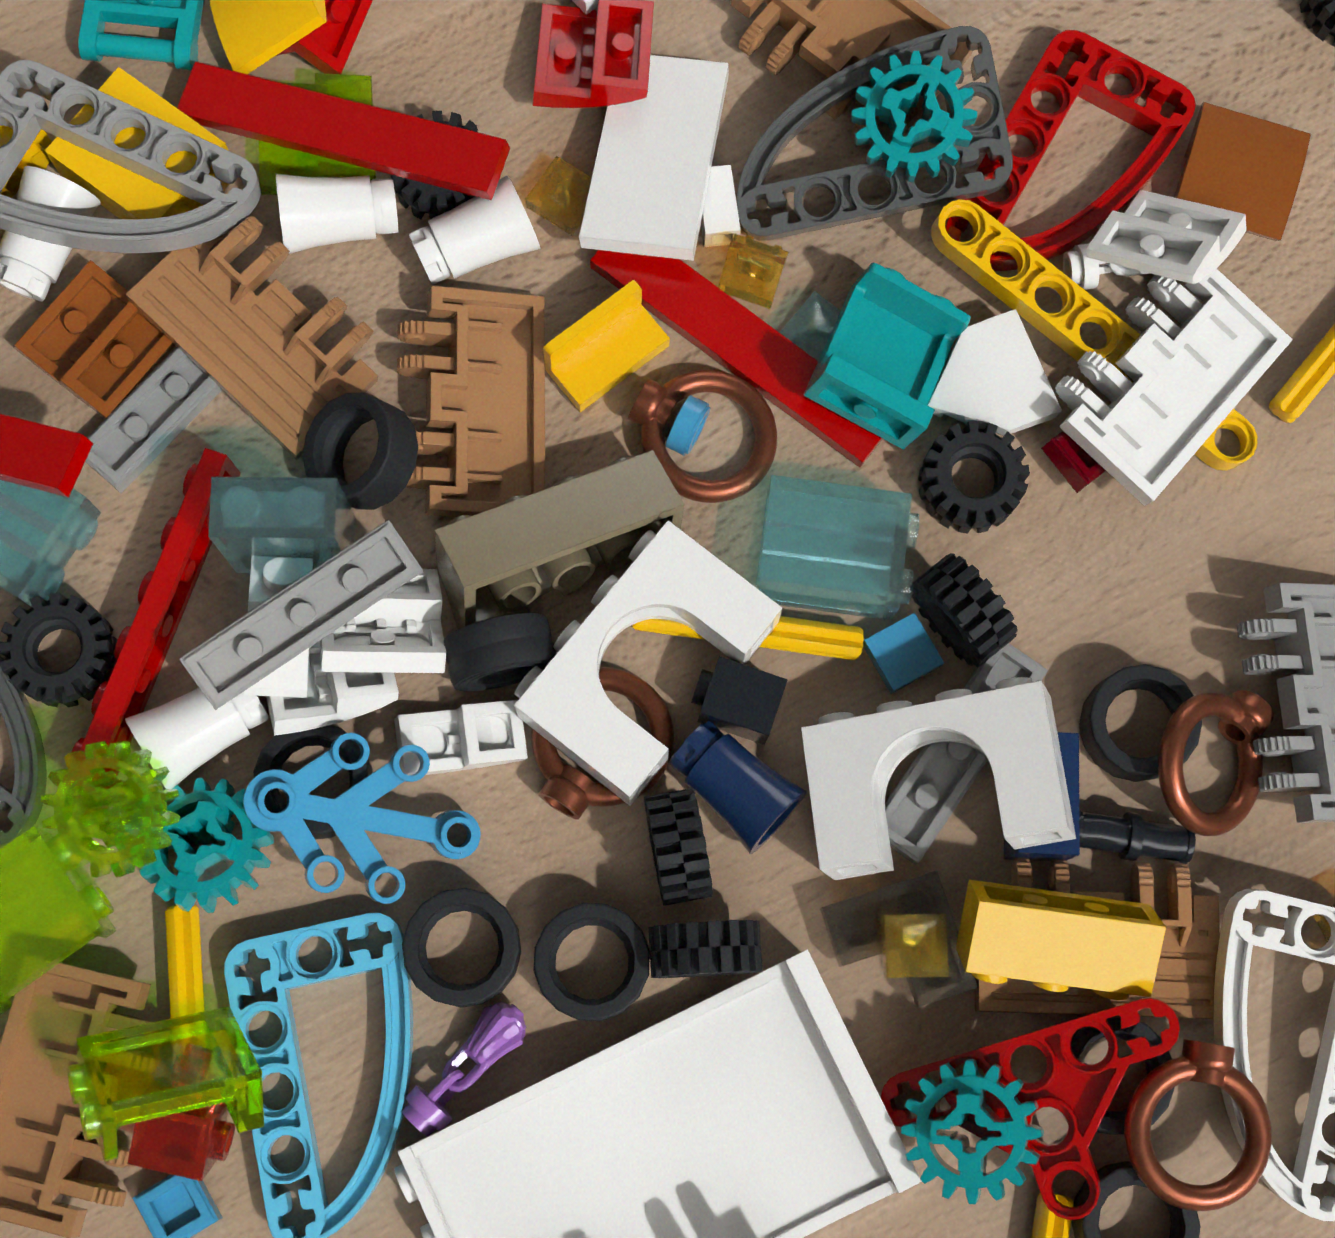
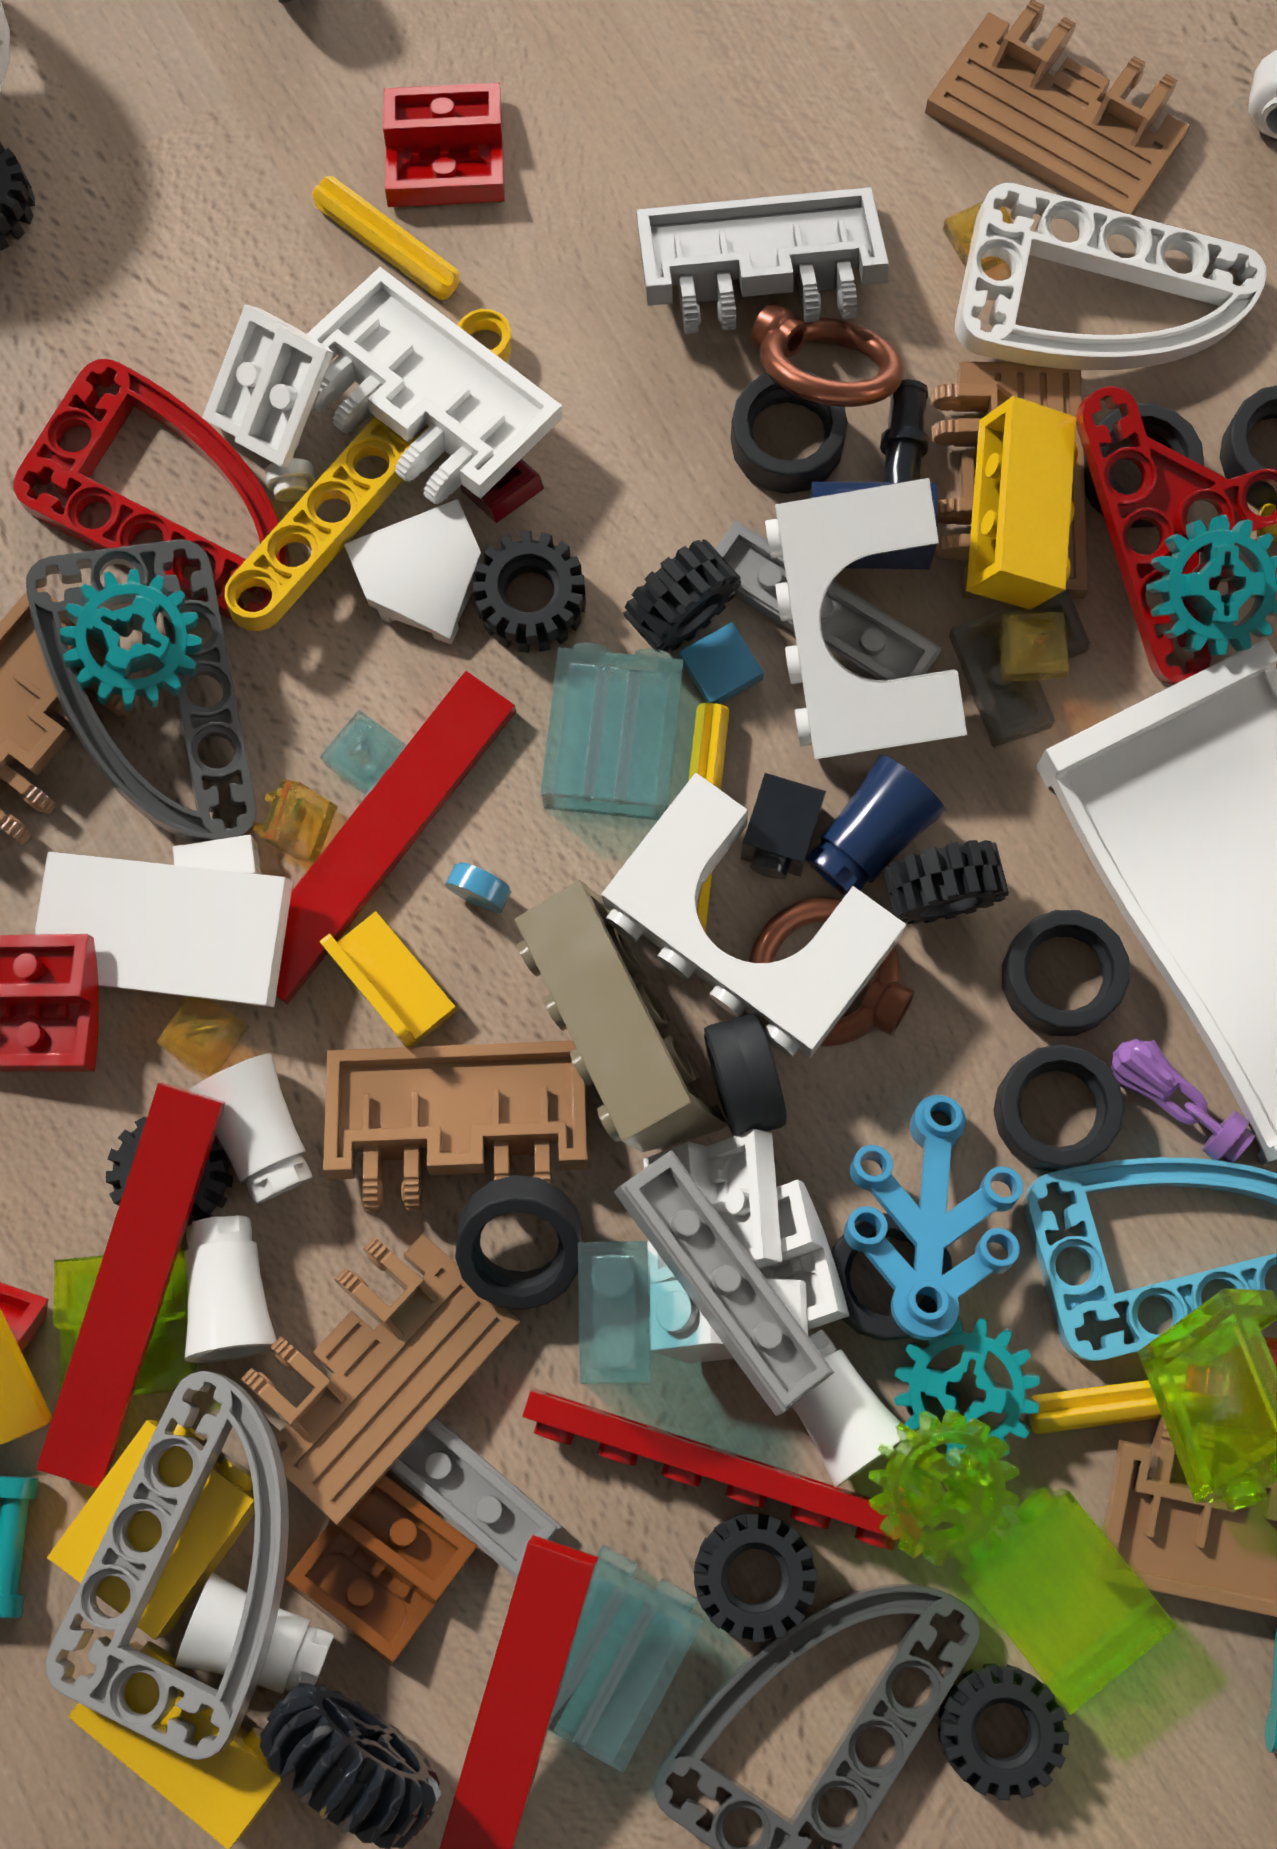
camera: 80 degrees left, 0 degrees up
(462, 737) = (830, 1119): white slope -> none
(656, 405) = (455, 923): copper piece -> none
(705, 948) = (1051, 852): black tyre -> none
(886, 355) = (399, 677): teal panel -> none
(1208, 1065) = (1136, 365): copper piece -> none
(1244, 167) = (178, 314): dark orange slope -> none

